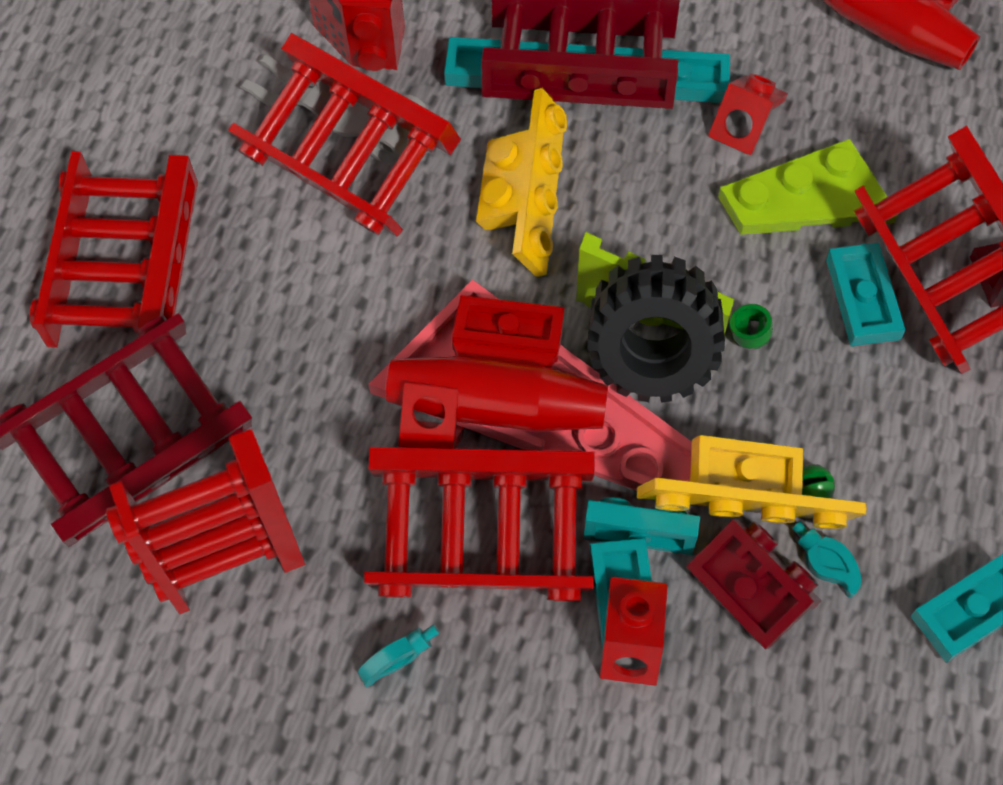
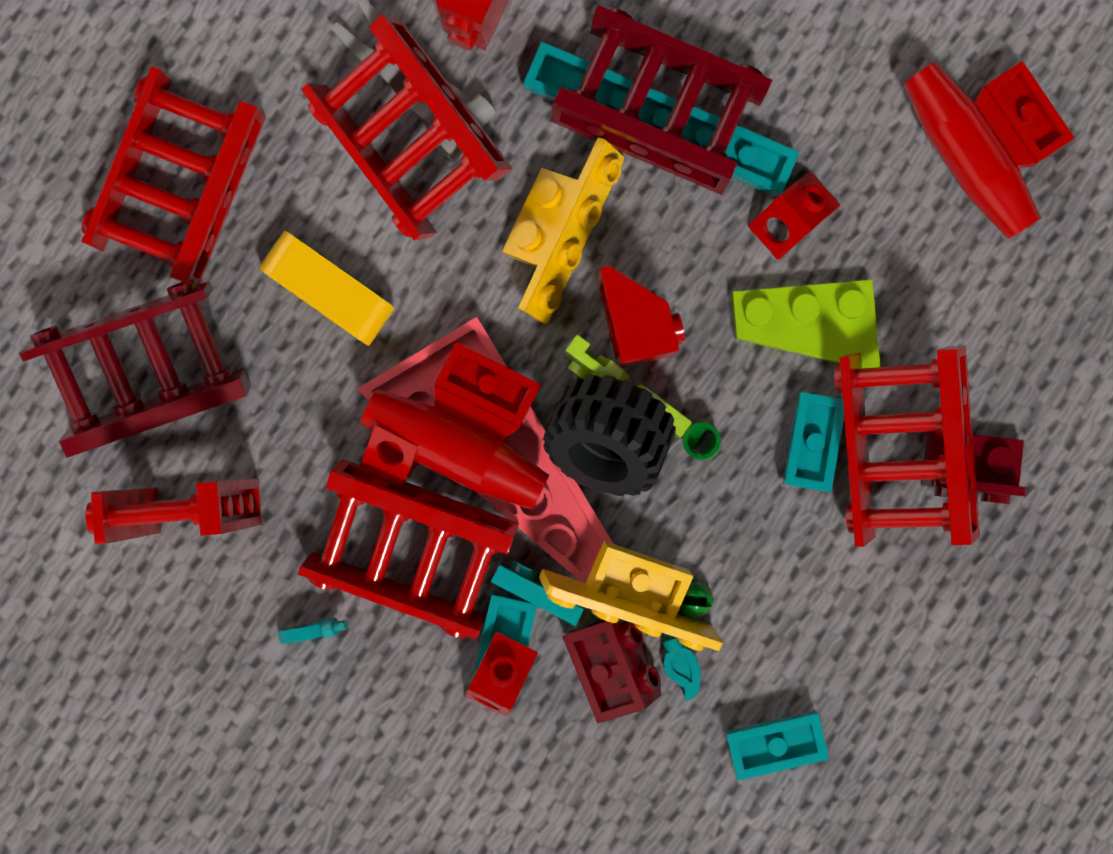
camera: 15 degrees right, 25 degrees up
(307, 302) = (326, 288): none -> yellow beam
(636, 213) = (638, 320): none -> red slope

